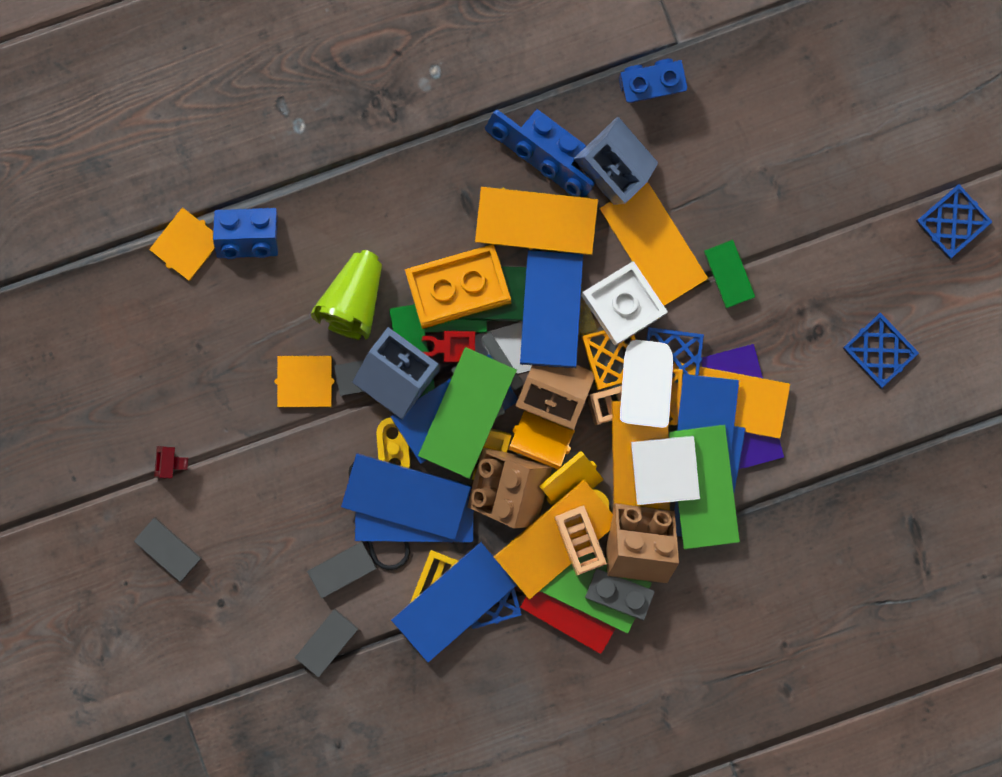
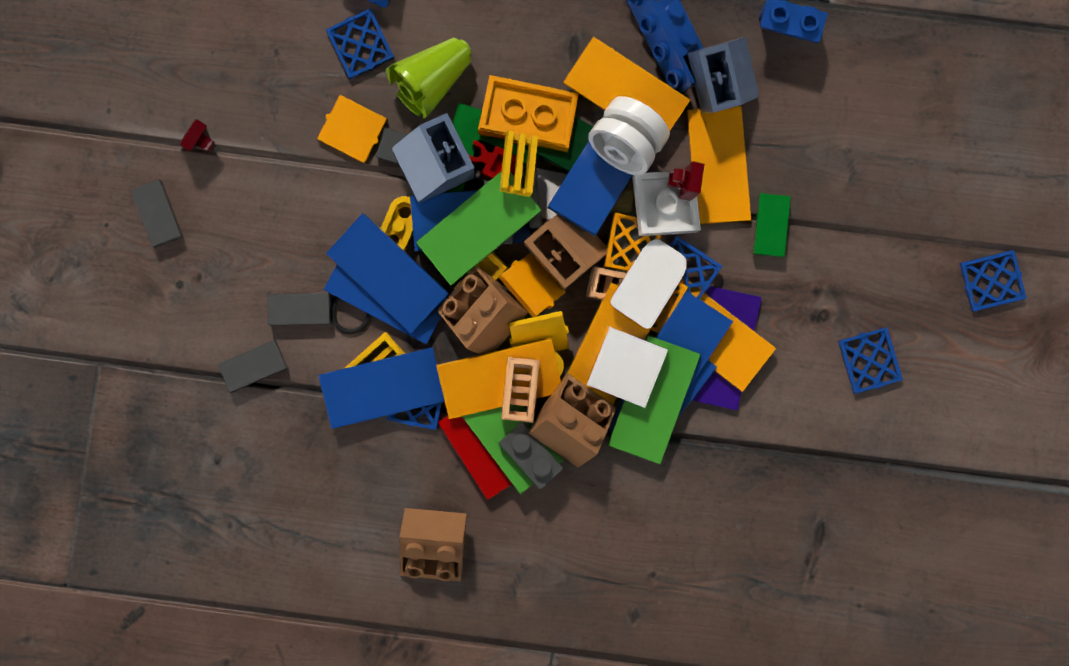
camera: 20 degrees right, 0 degrees up
(291, 314) = (350, 23): none -> blue window
(467, 316) = (521, 140): none -> yellow tile
(560, 263) = (629, 135): none -> white wheel
(572, 719) = (432, 544): none -> medium nougat slope
(633, 274) = (688, 180): none -> dark red tile

